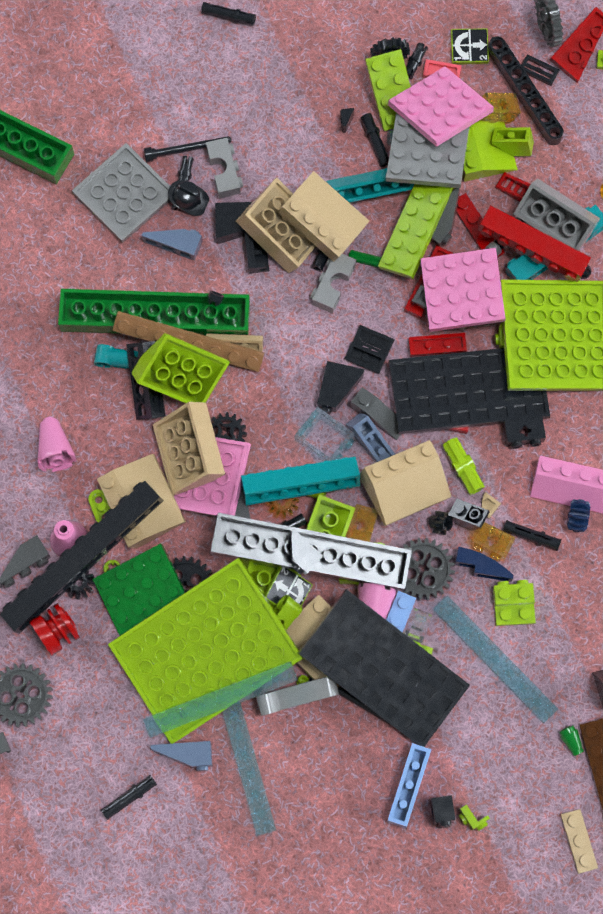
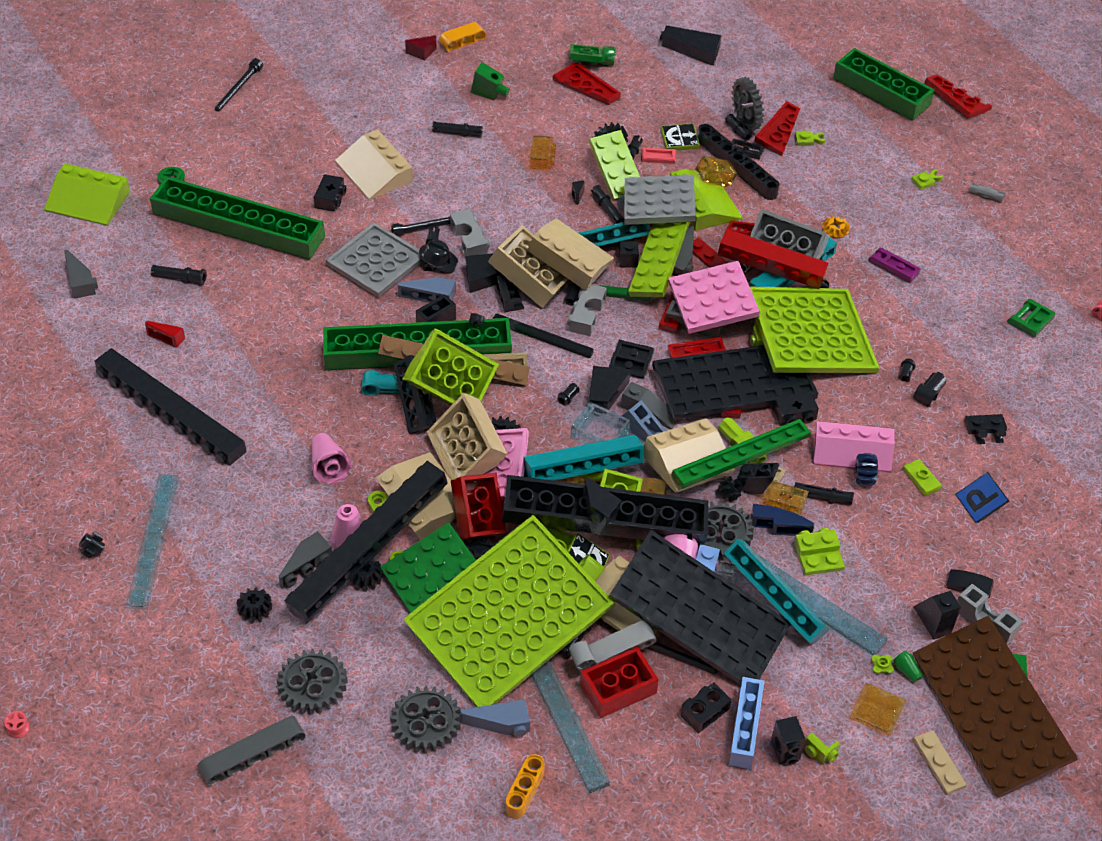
camera: 10 degrees left, 25 degrees down
(55, 629) = (345, 610): red wheel -> none
(83, 87) = (329, 193): none -> black brick
(117, 728) = (430, 734): none -> dark grey gear
(128, 797) = (446, 764): black pin -> none
(133, 61) = (375, 165): none -> tan slope
(177, 276) = (437, 310): none -> black brick
(190, 528) = (478, 506): none -> red brick
(201, 815) = (527, 777): none -> light orange beam
(220, 699) = (530, 655): clear light blue plate -> none
(283, 309) = (548, 337): none -> black axle
(296, 391) = (565, 397): none -> black pin
(299, 730) = (619, 682): none -> red brick
(315, 69) = (542, 152): none -> clear yellow brick
(378, 767) = (709, 710): none -> black brick
(387, 210) = (628, 254): none -> black slope
(440, 106) = (664, 166): bright pink plate -> none
(456, 489) = (740, 453): none -> green plate
(461, 650) = (776, 591): none -> teal brick
(514, 141) = (736, 194): lime slope -> none
(534, 780) = (878, 709): none -> clear yellow plate
(536, 38) = (738, 127): none -> black pin
(544, 730) = (882, 669): none -> lime plate

